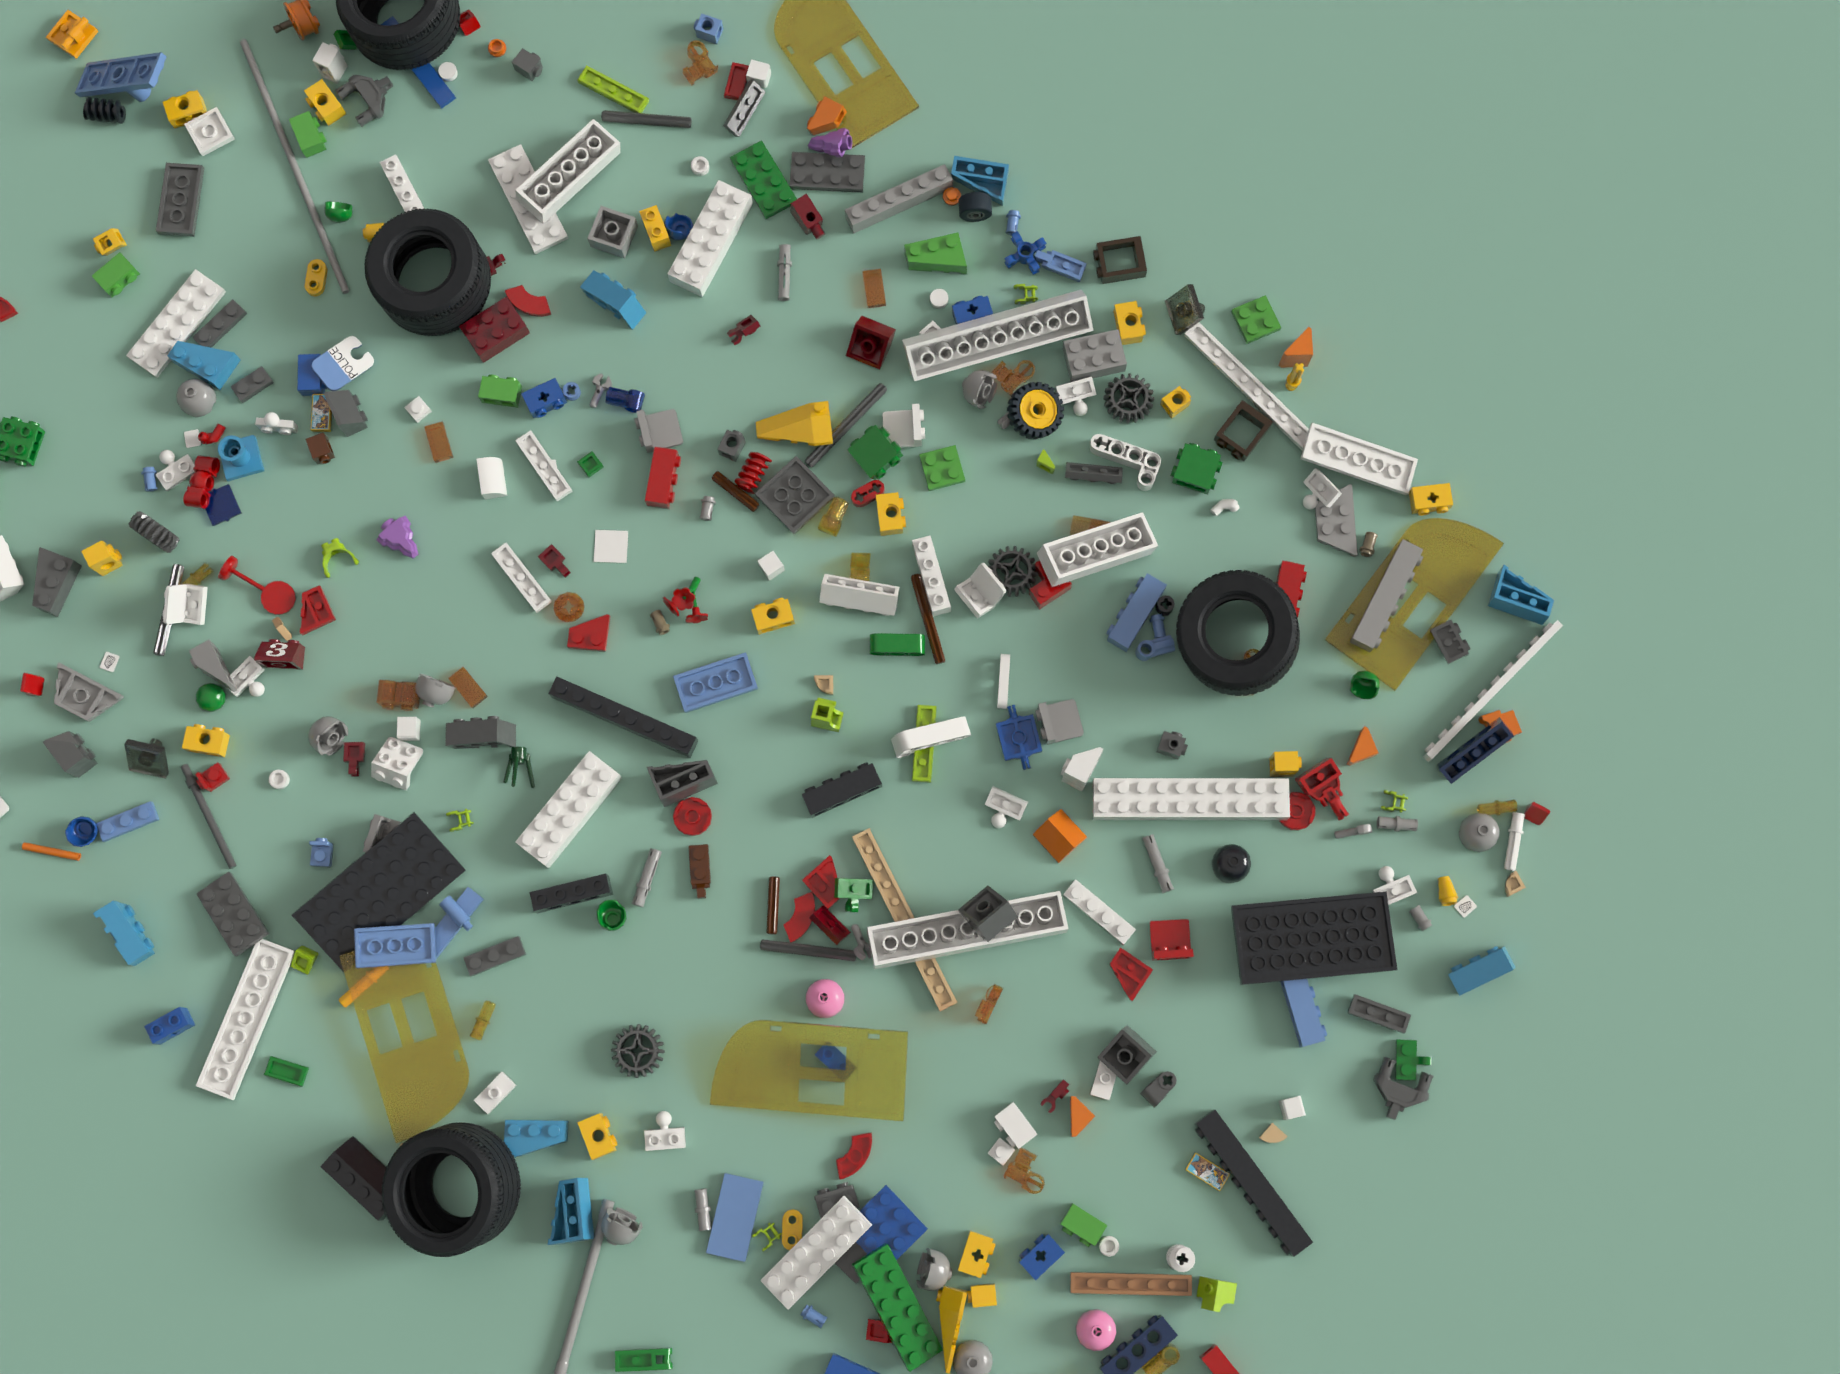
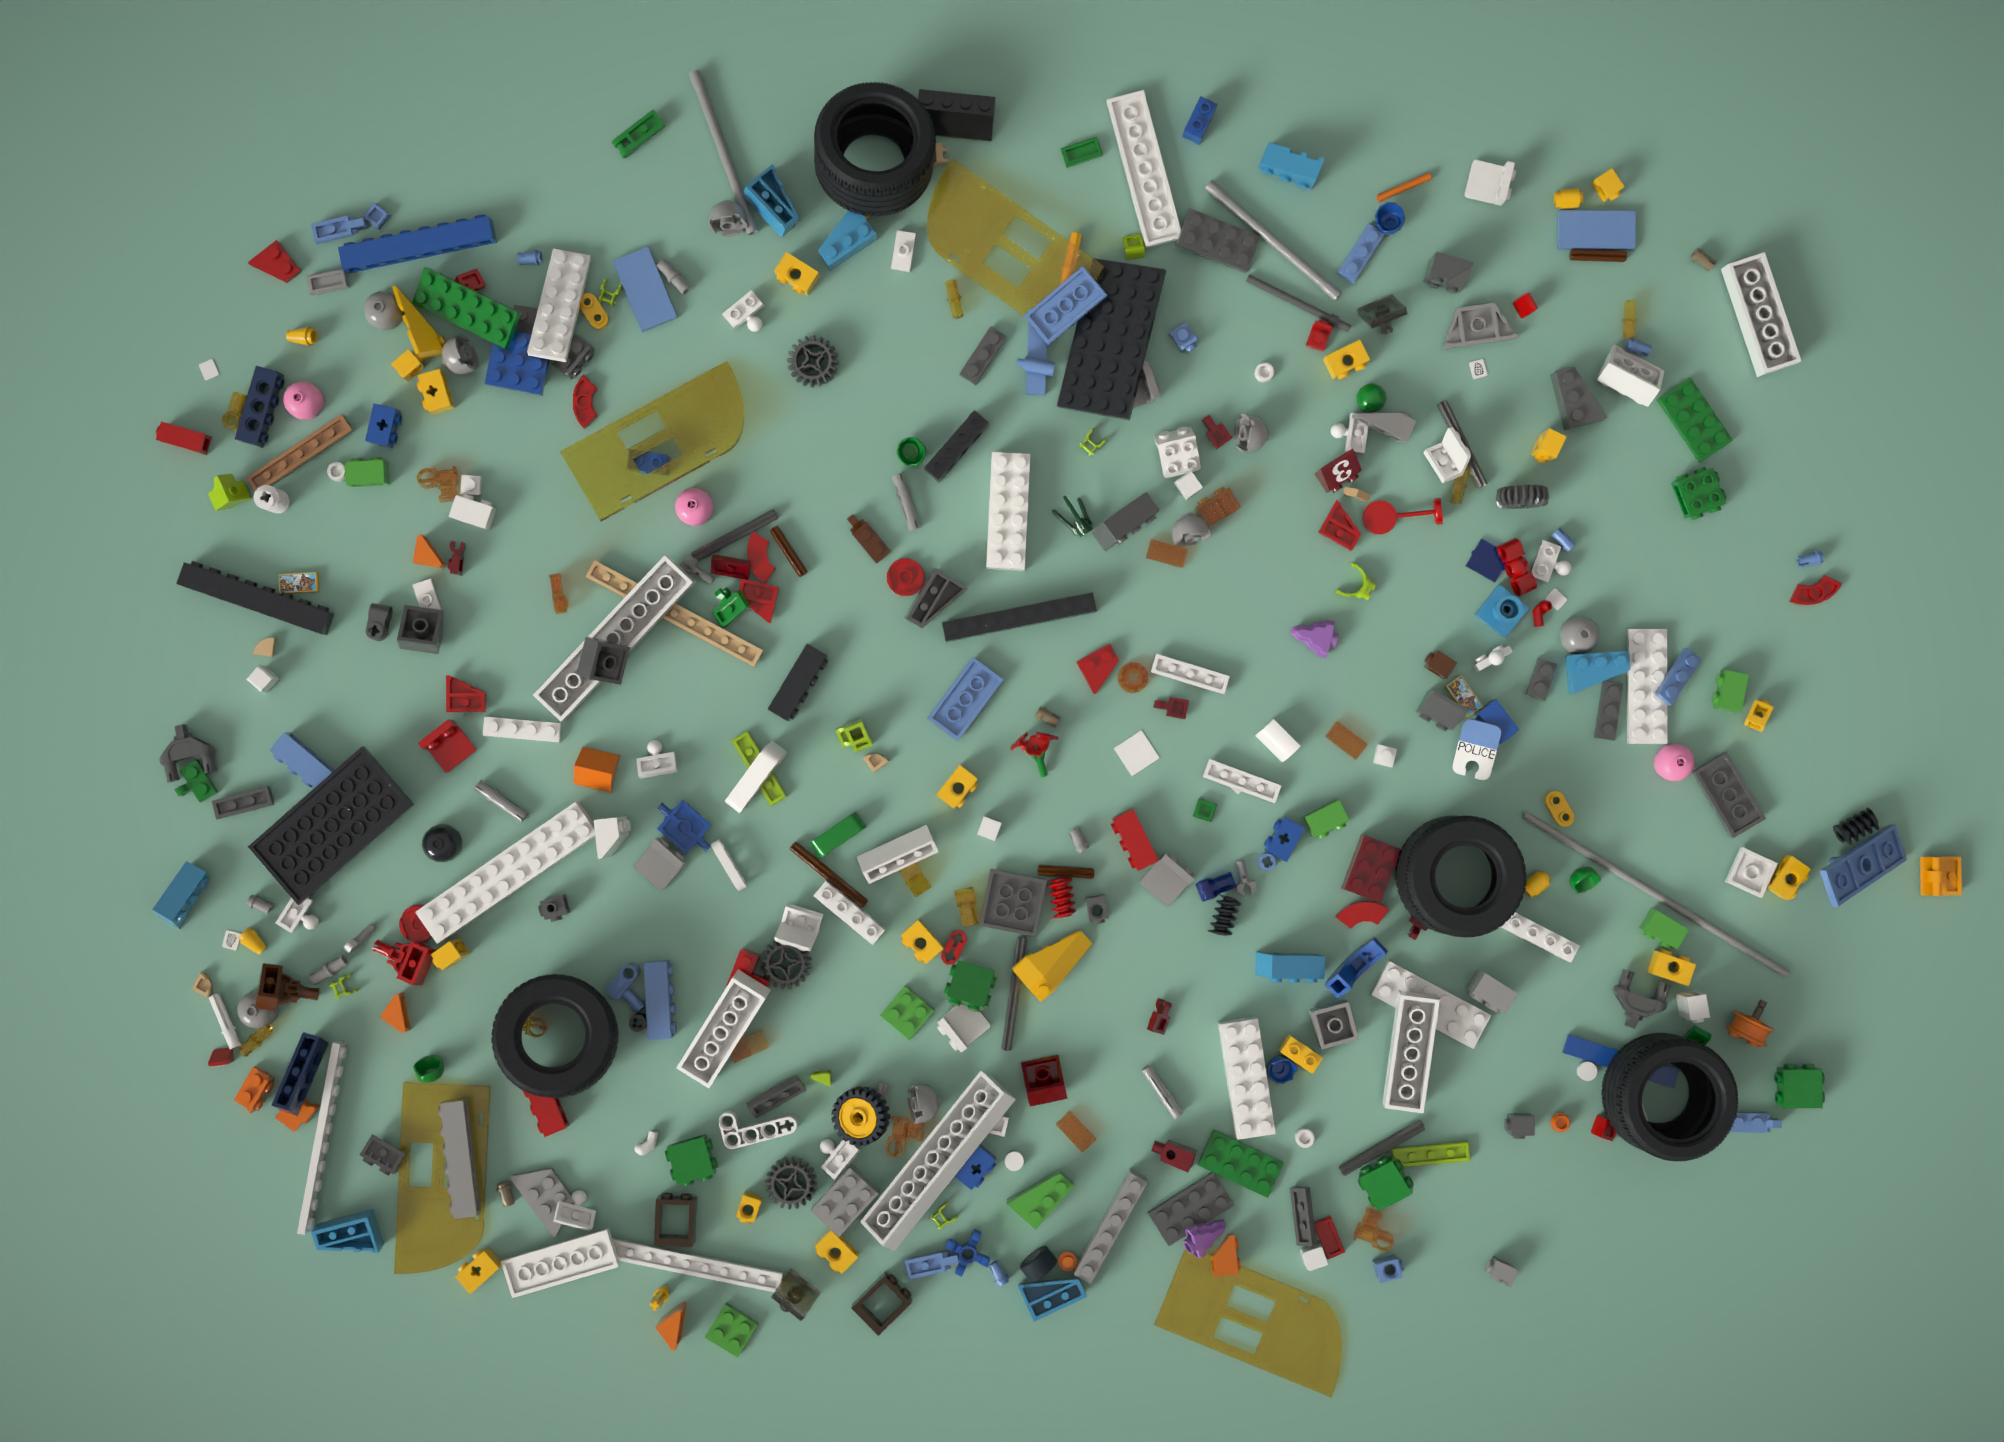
camera: 145 degrees right, 10 degrees up
(146, 313) = (1678, 676): none -> medium blue plate
(201, 251) = (1674, 762): none -> bright pink cylinder
(201, 950) = (1326, 286): none -> light grey piece
(474, 174) = (1487, 989): none -> light grey brick
(563, 266) = (1354, 966): none -> blue arch
(635, 370) = (1225, 915): none -> black piece
(662, 89) = (1385, 1182): none -> green brick
(1448, 833) = (279, 989): none -> reddish brown brick
(1524, 769) = (254, 1089): none -> orange bracket

